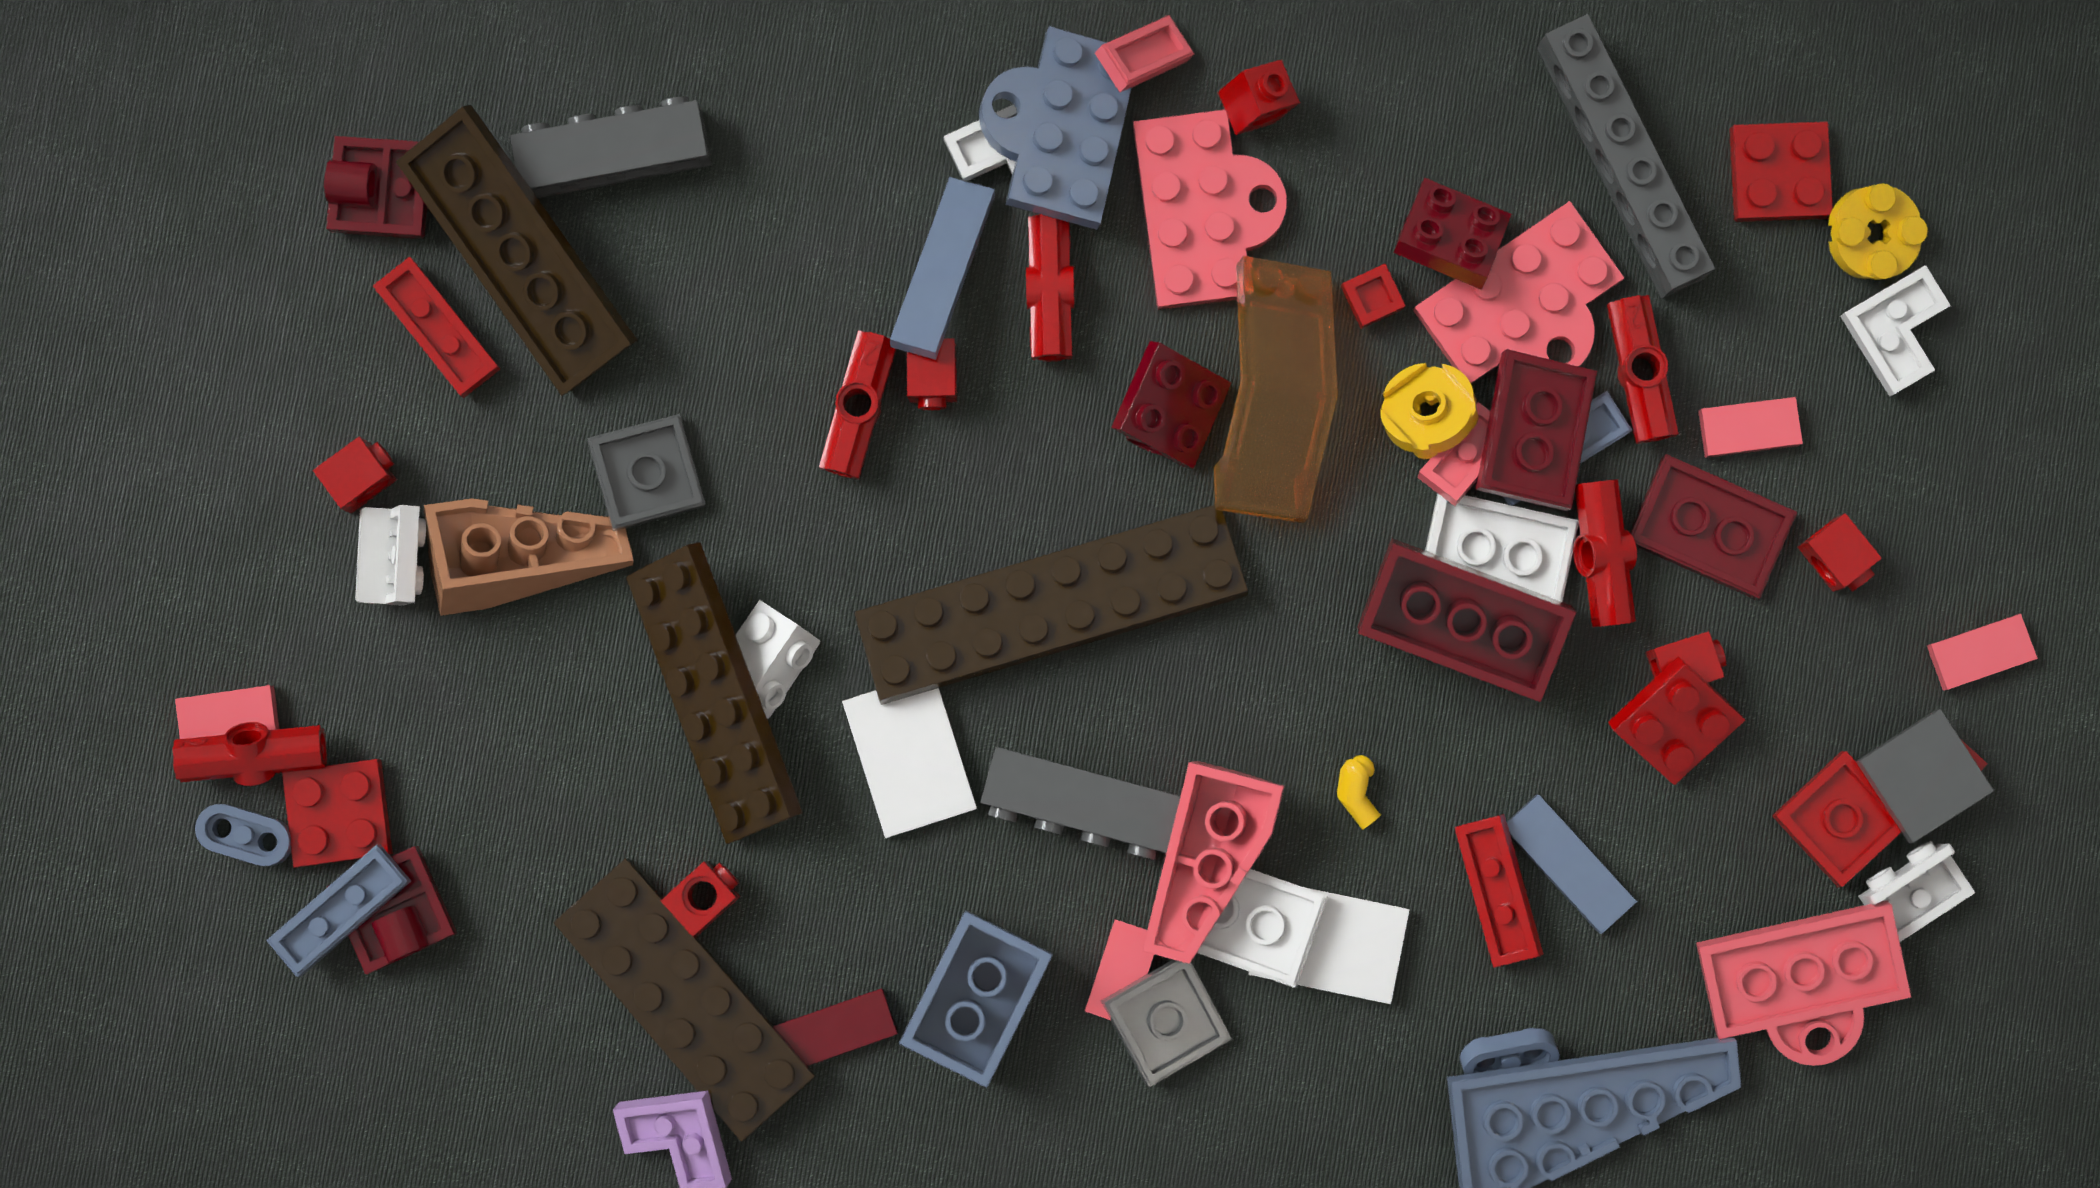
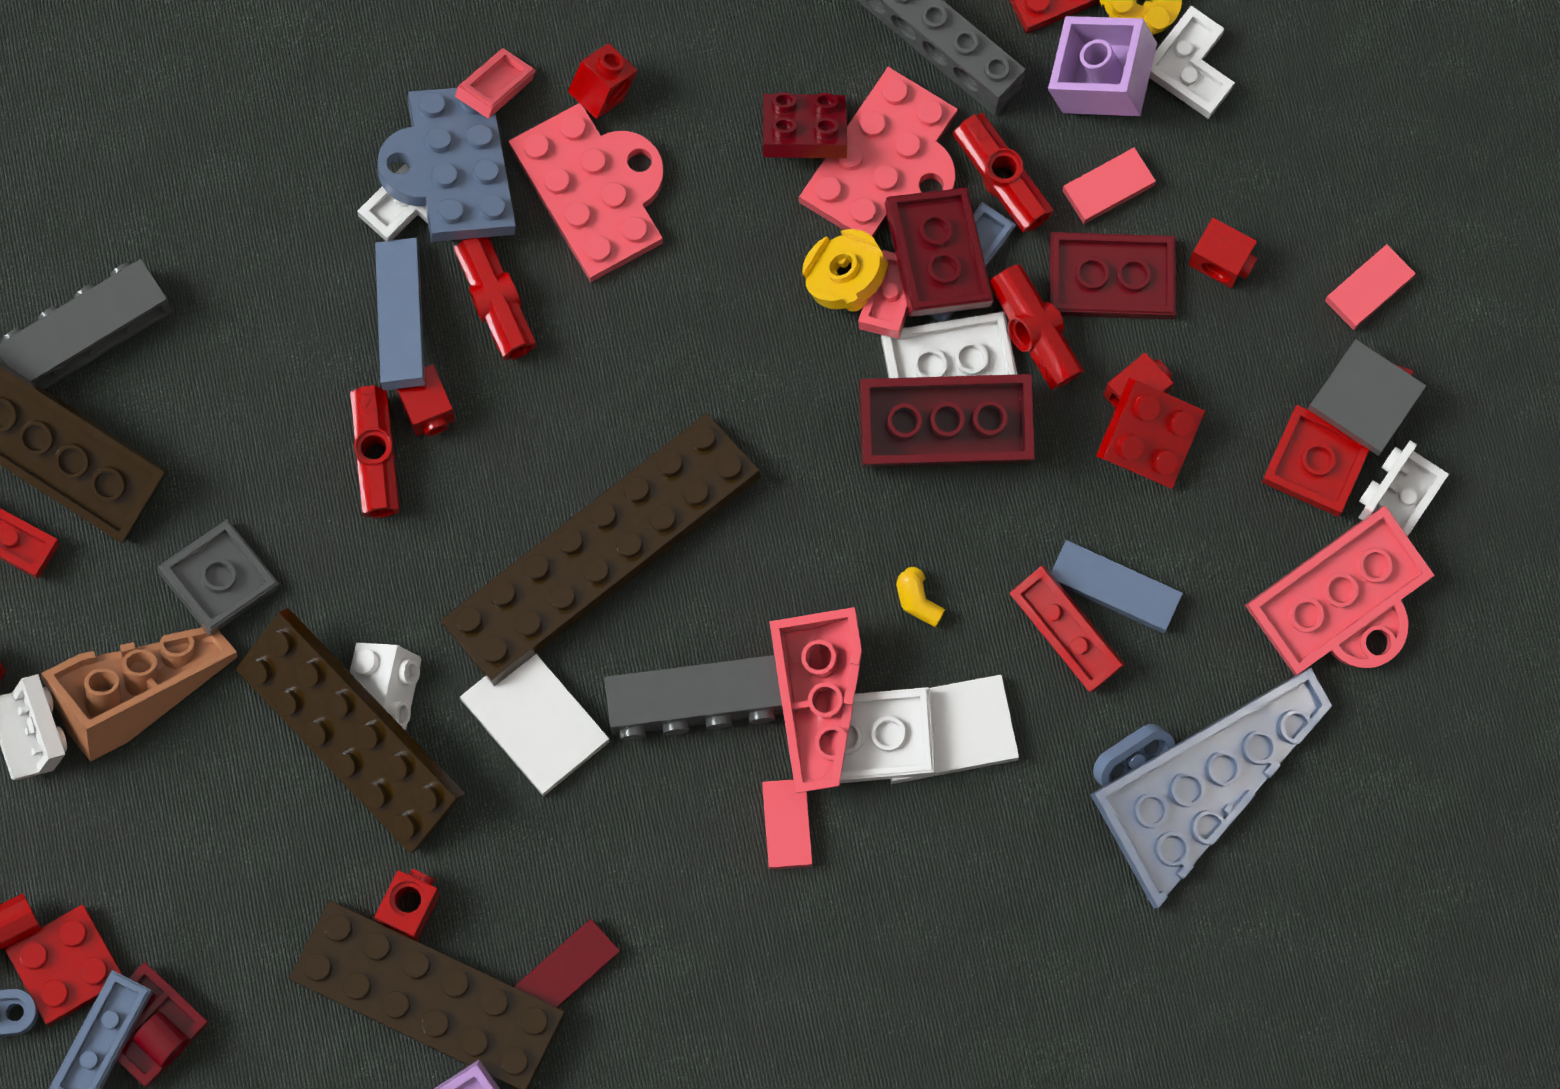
camera: 30 degrees left, 10 degrees down
(976, 998) = (673, 889): sand blue brick -> none
(1166, 1020) = (839, 846): tile -> none
(1170, 405) = (633, 350): dark red plate -> none
(1283, 391) = (722, 304): clear orange windscreen -> none
(1373, 296) = (761, 201): red plate -> none
(1800, 297) = (1102, 66): none -> lavender brick

